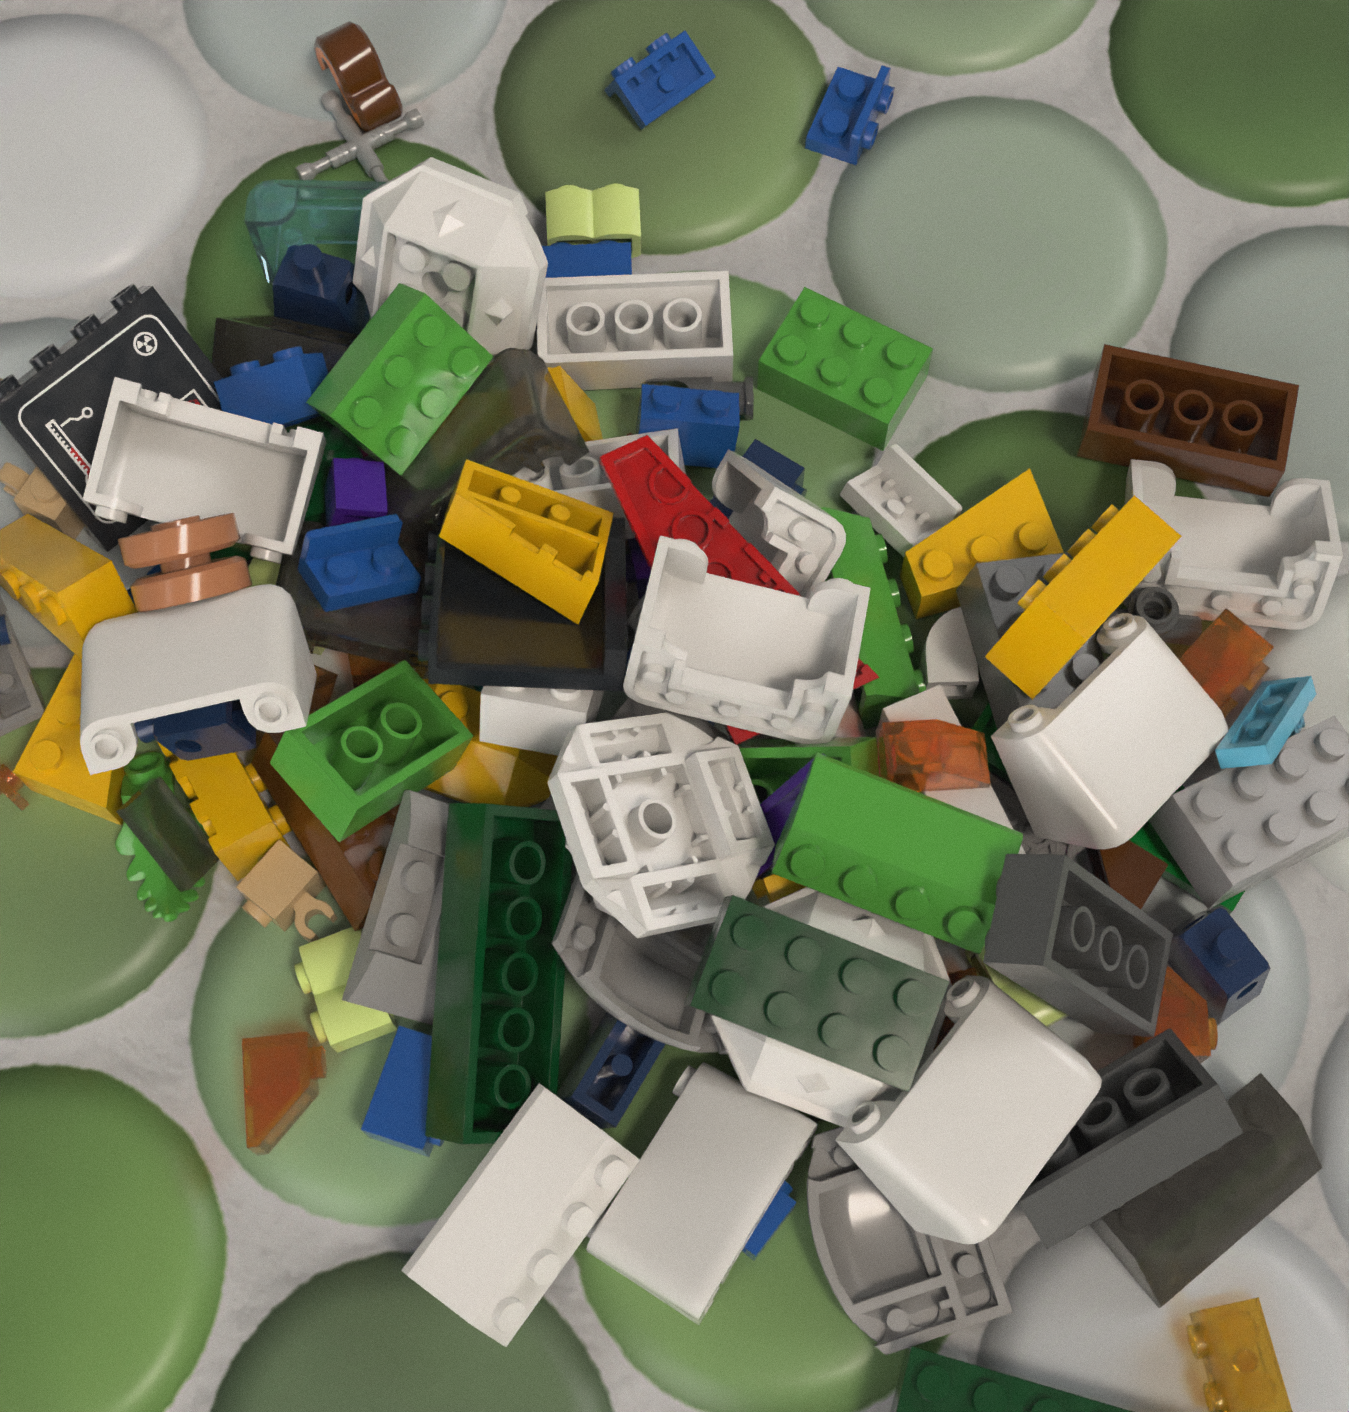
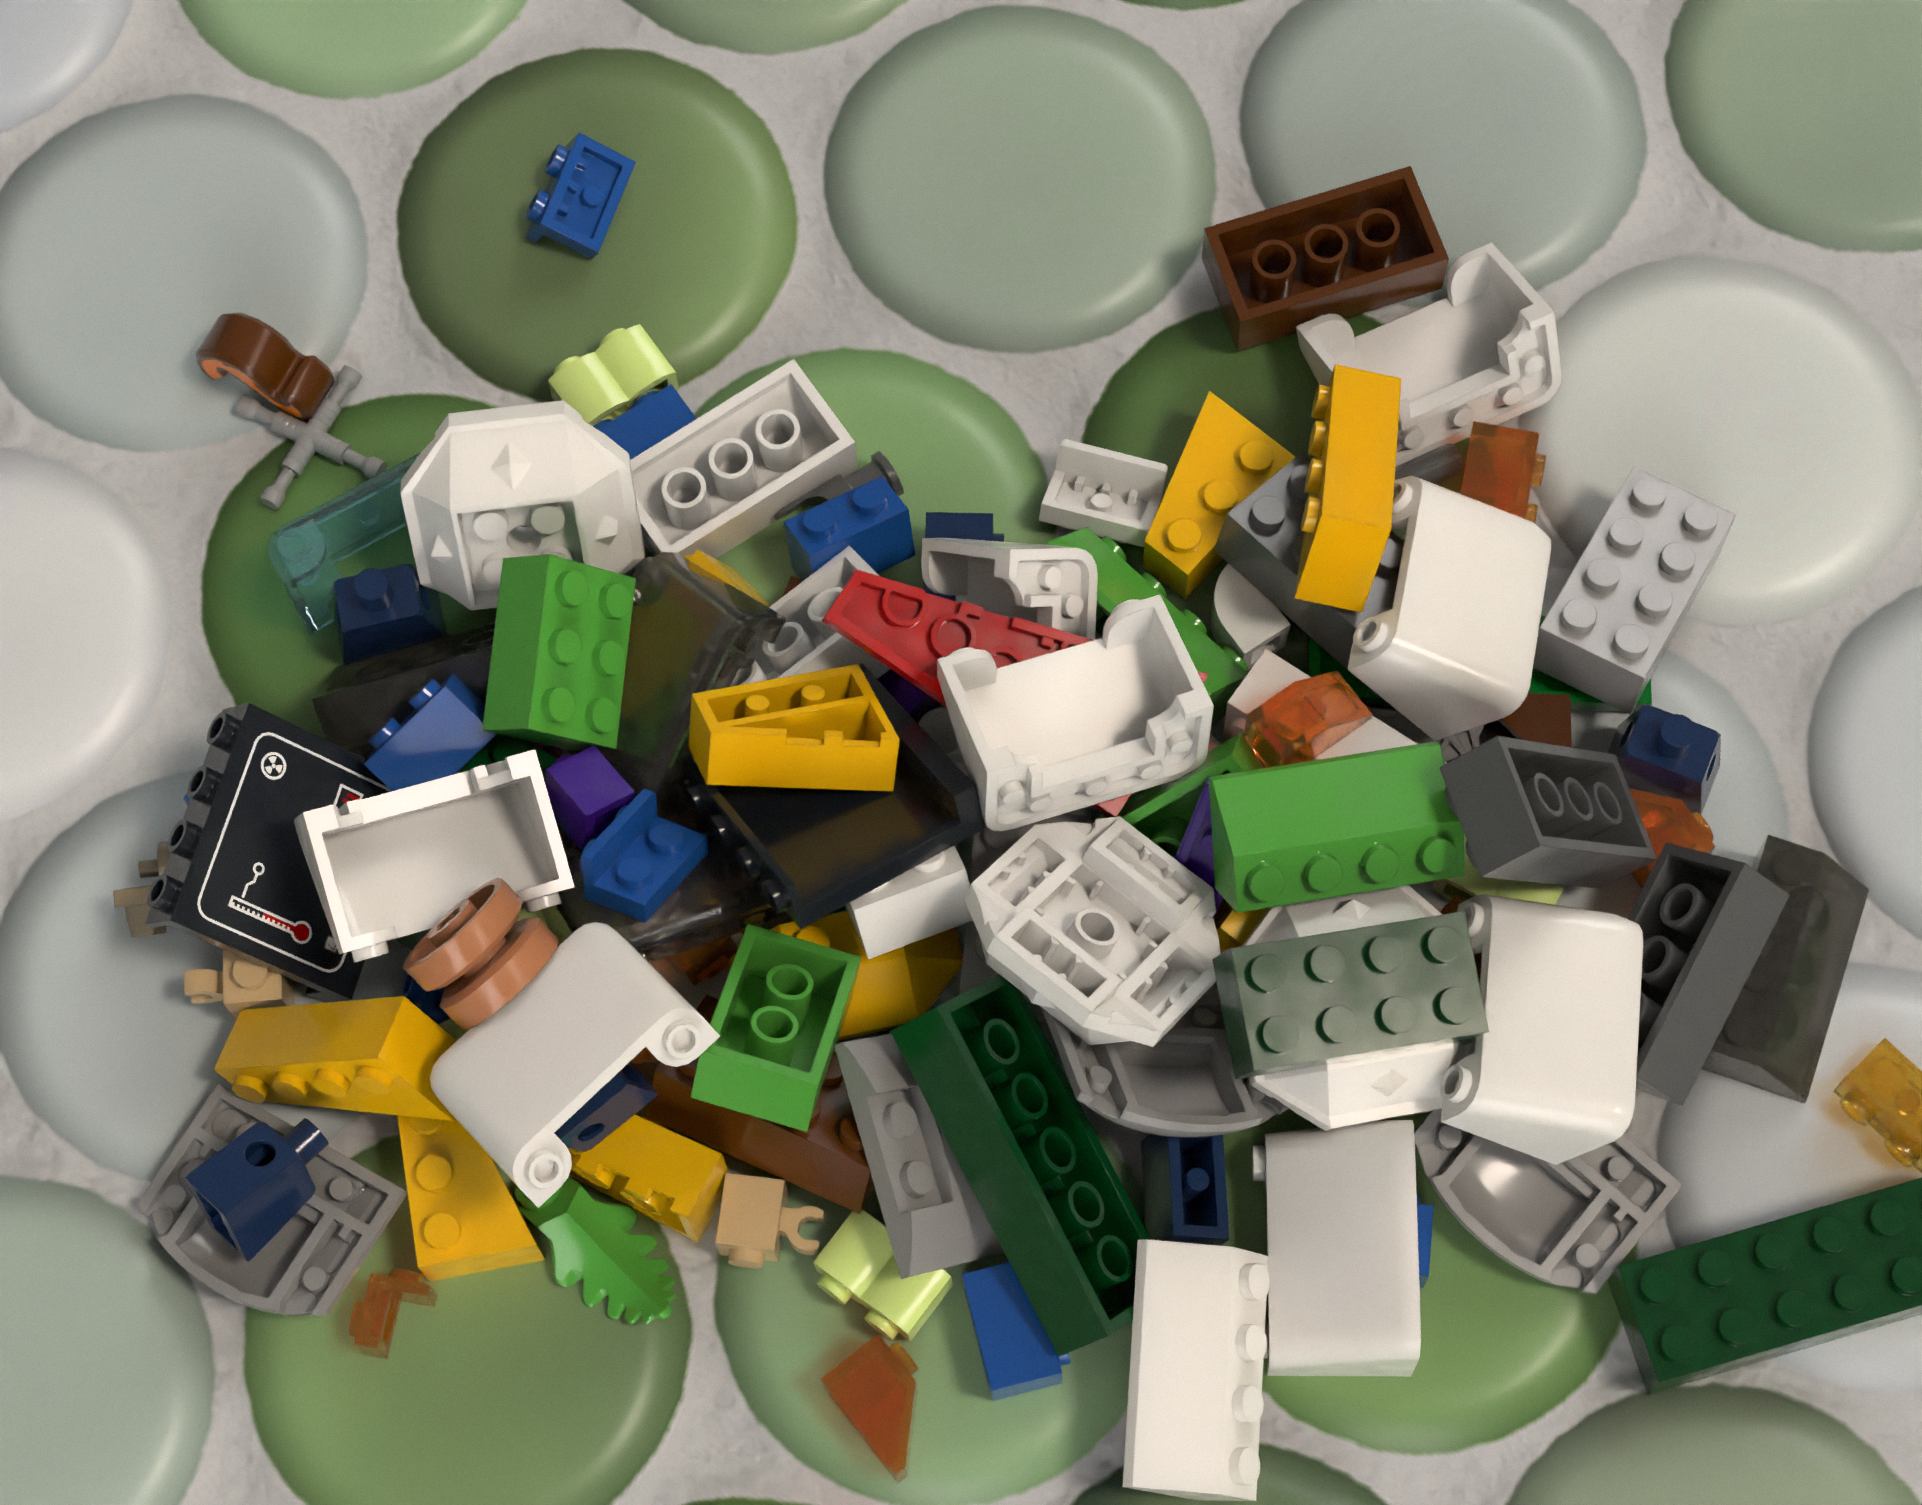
camera: 30 degrees left, 0 degrees up
(169, 833) = (613, 1233): clear smoke tile -> none
(843, 368) = (962, 392): bright green brick -> none
(849, 113) = (794, 128): blue bracket -> none
(1160, 600) = (1420, 453): dark grey plate -> none
(1266, 723) = (1577, 509): medium azure hinge -> none

